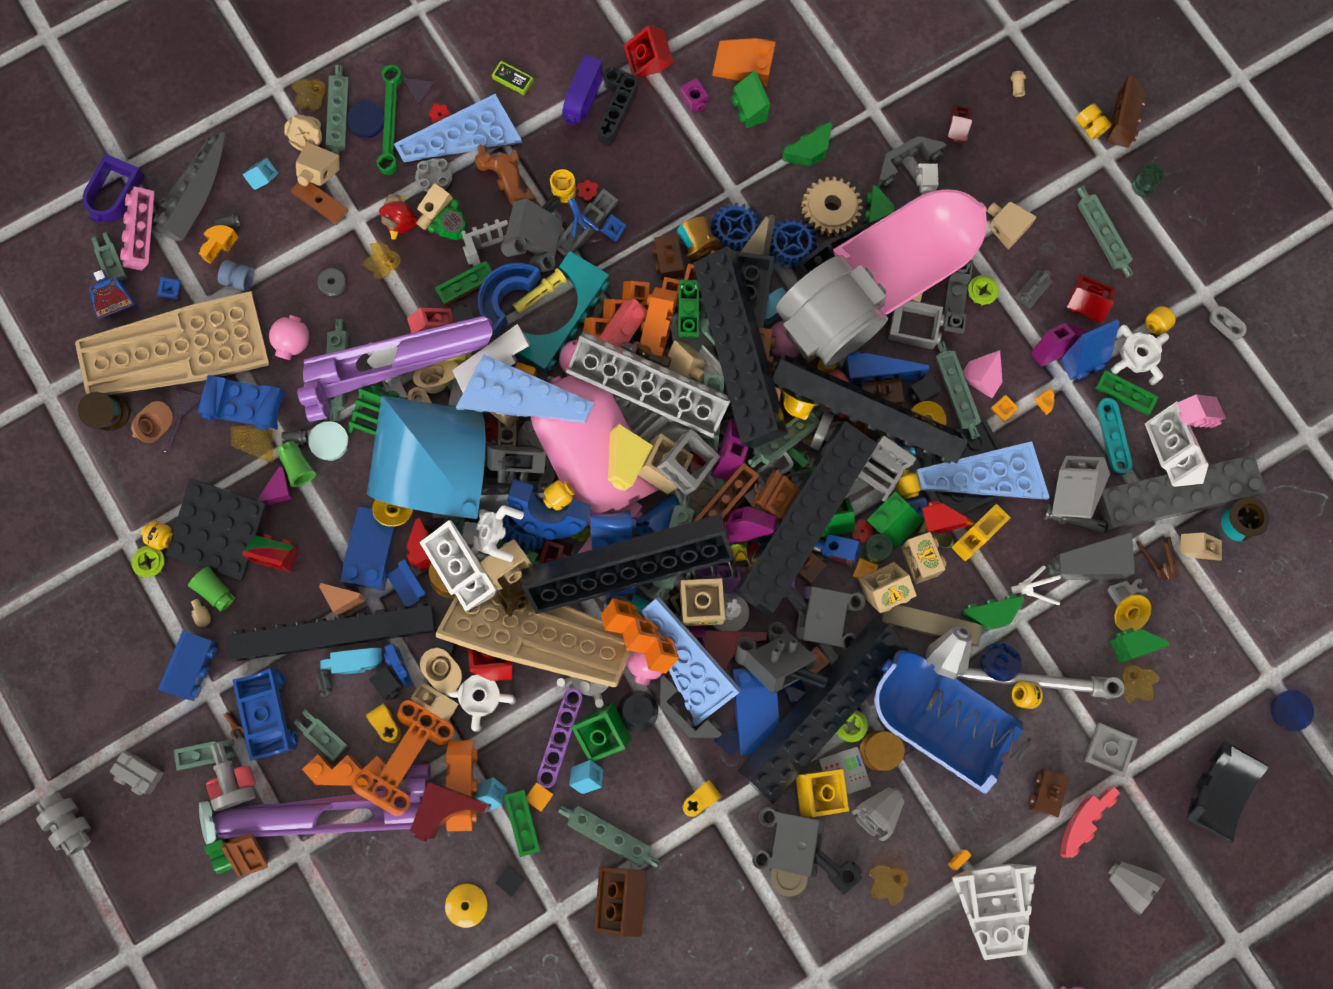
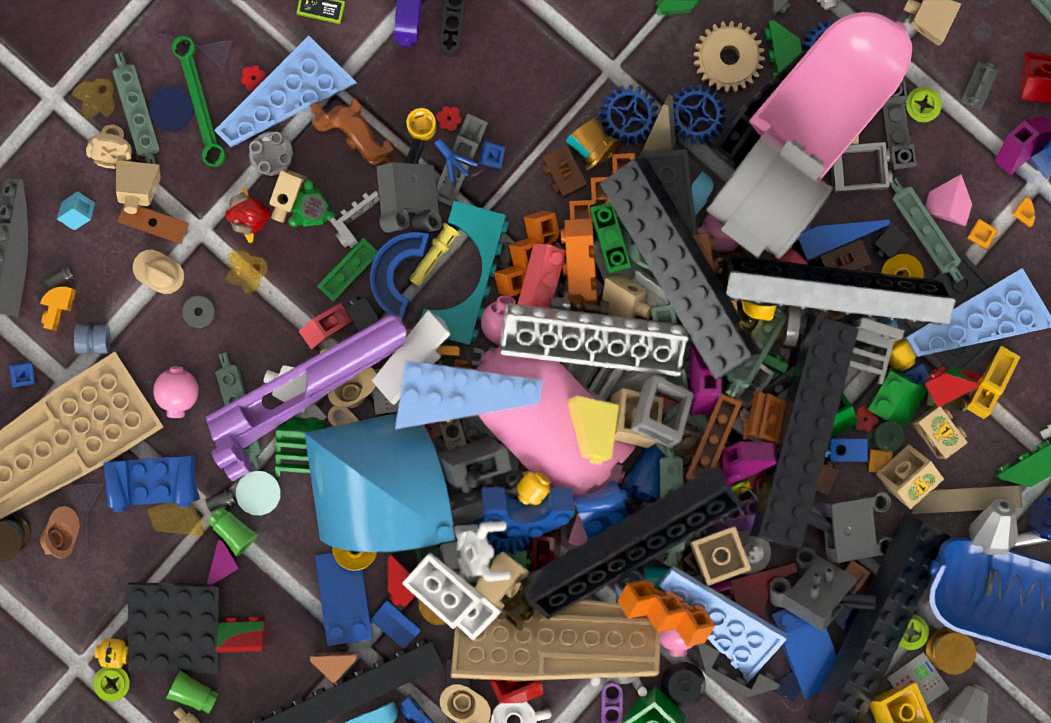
camera: 20 degrees left, 10 degrees up
(310, 241) = (158, 271): none -> tan piece

